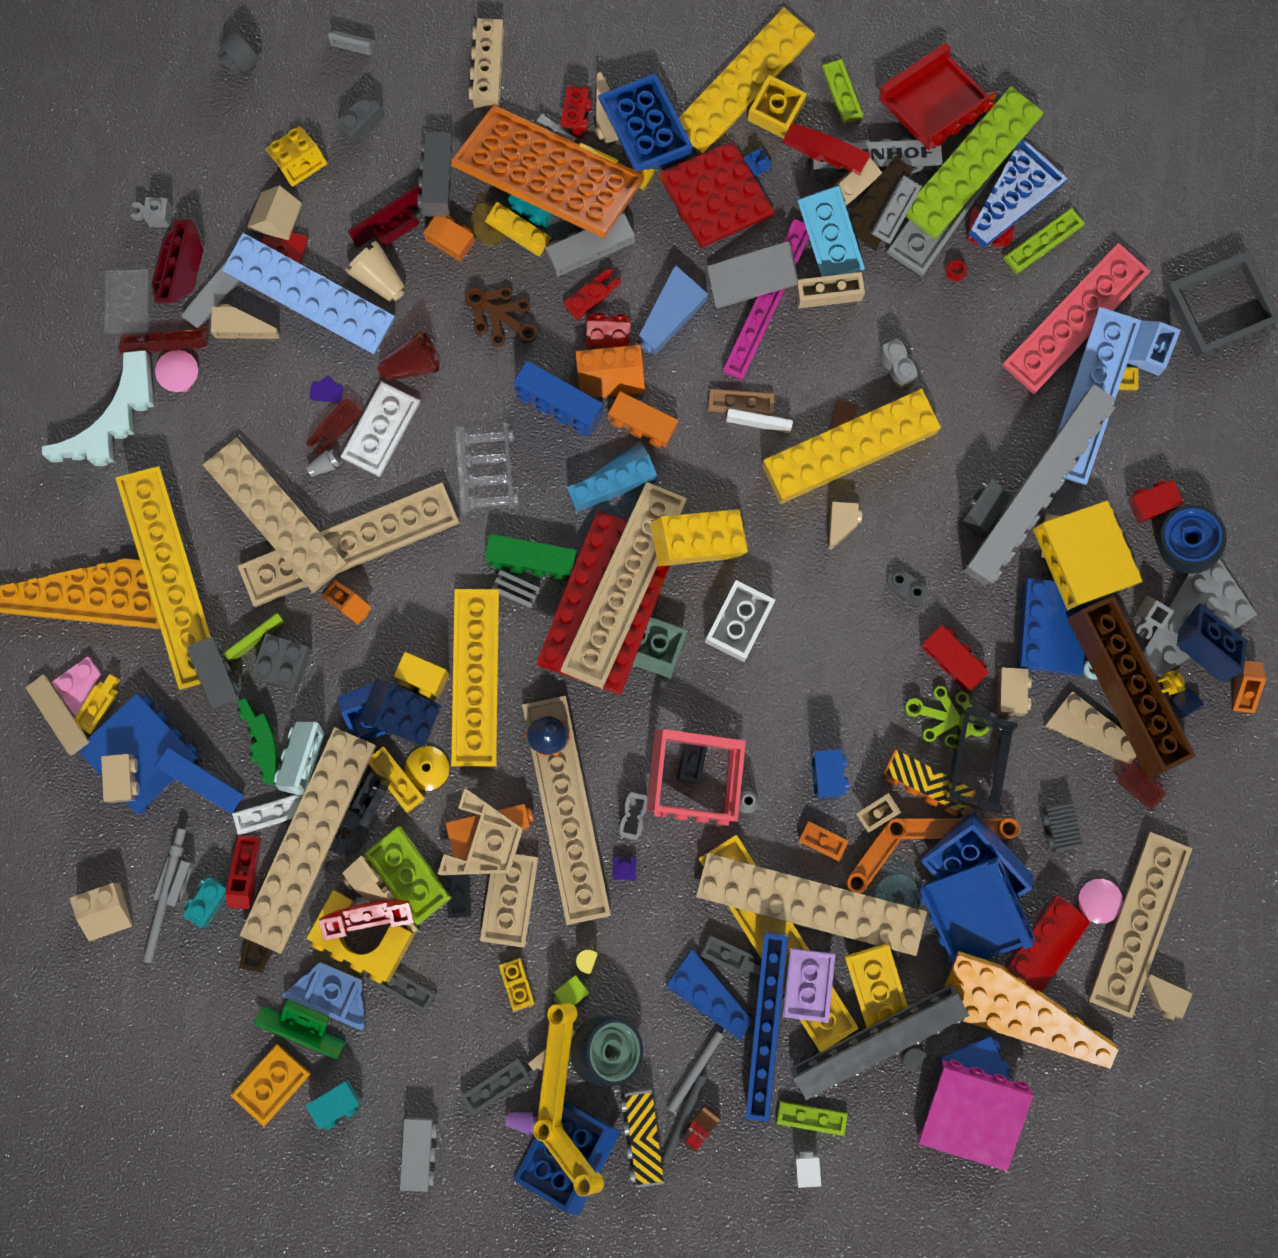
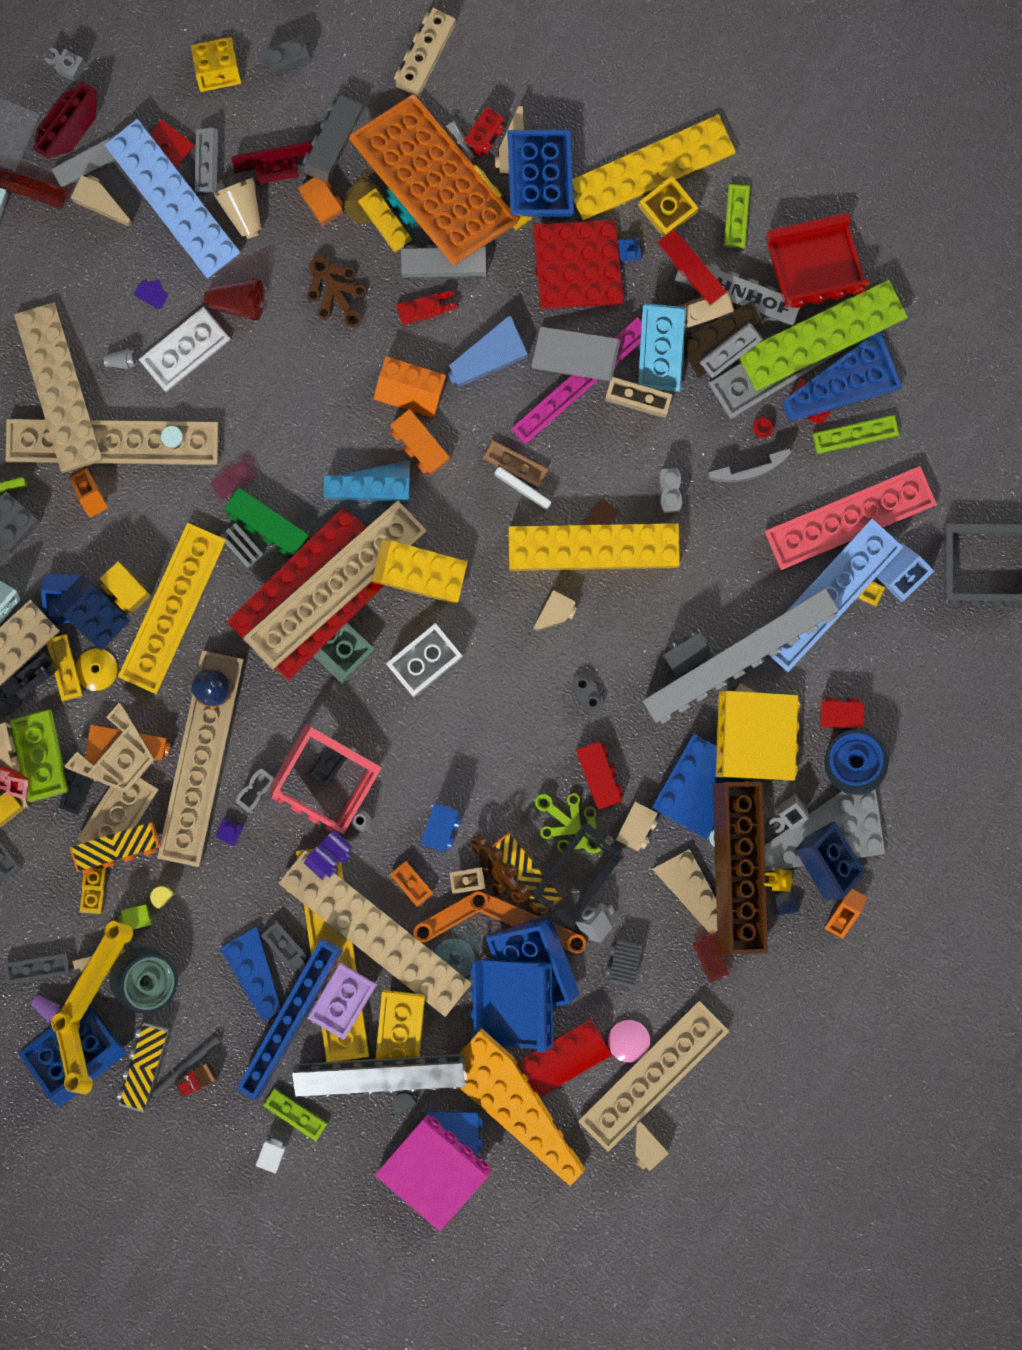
camera: 25 degrees right, 5 degrees up
(176, 371) = (26, 218): bright pink dish -> none
(275, 213) = (174, 111): tan slope -> none
(325, 245) = (206, 160): none -> light grey plate
(335, 425) = (146, 329): clear red hinge -> none
(404, 514) = (171, 437): none -> light aqua tile
(468, 481) = (246, 411): clear fence -> none
(479, 530) = (232, 479): none -> clear pink plate
(521, 931) = (114, 847): none -> brick
(558, 399) = (353, 393): blue brick -> none
(608, 331) = (425, 347): red bracket -> none
(695, 1071) = (213, 1031): light grey bar -> none
(732, 848) = (328, 855): none -> dark purple brick
(876, 775) = (499, 869): none -> reddish brown plant
(944, 328) = (724, 474): none -> light grey slope
(1017, 800) = (594, 922): none -> light grey brick

